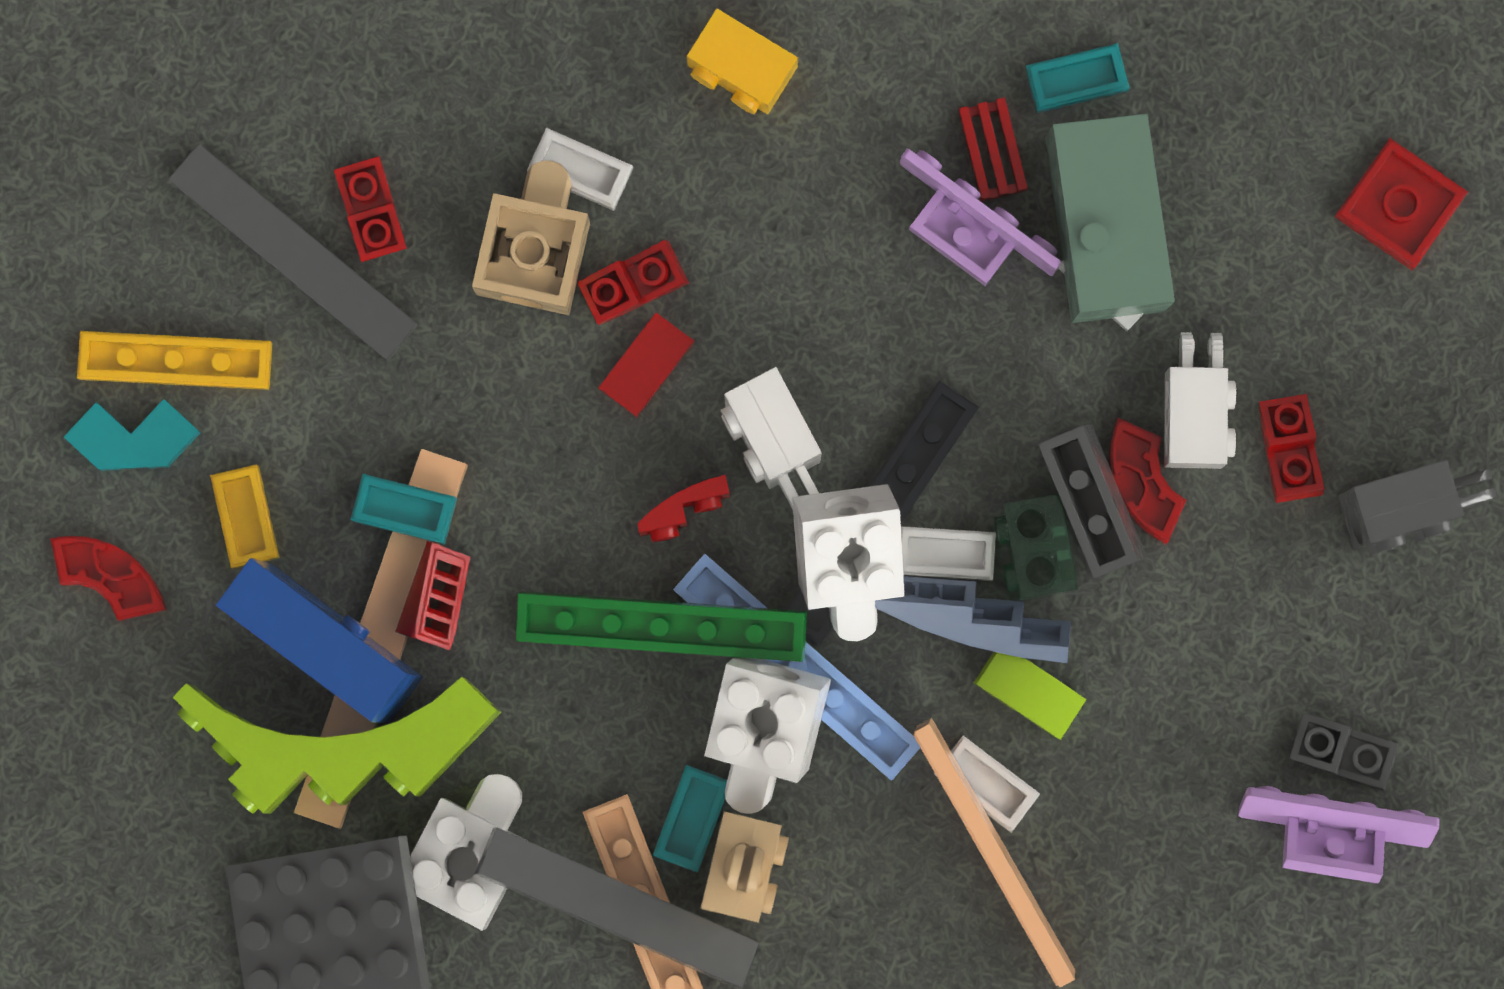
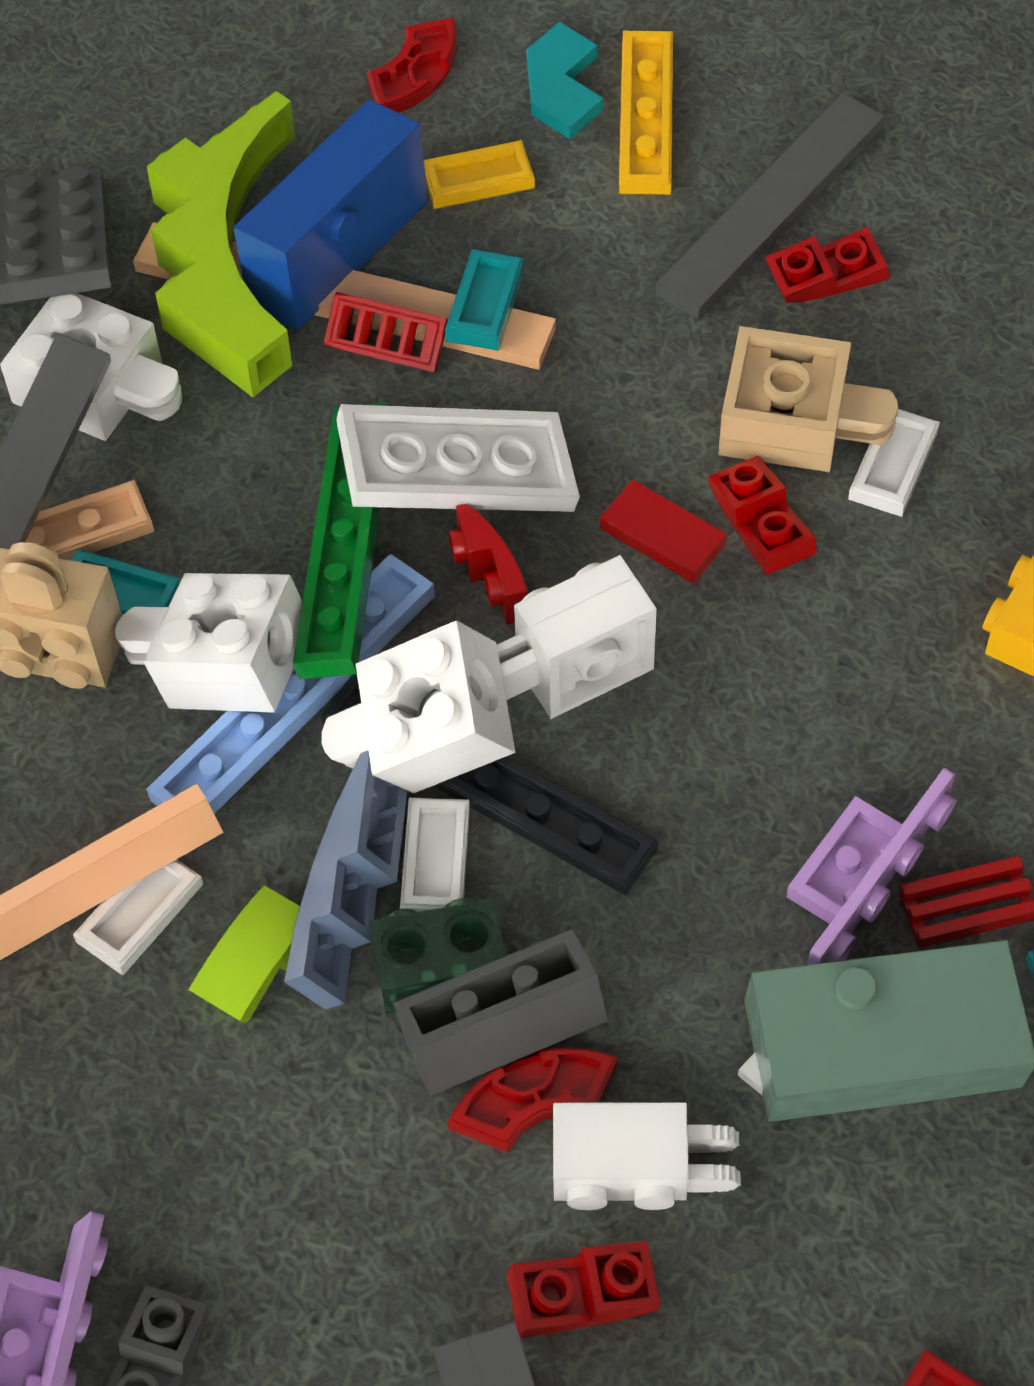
camera: 90 degrees right, 25 degrees down
(588, 532) = (456, 458): none -> white plate

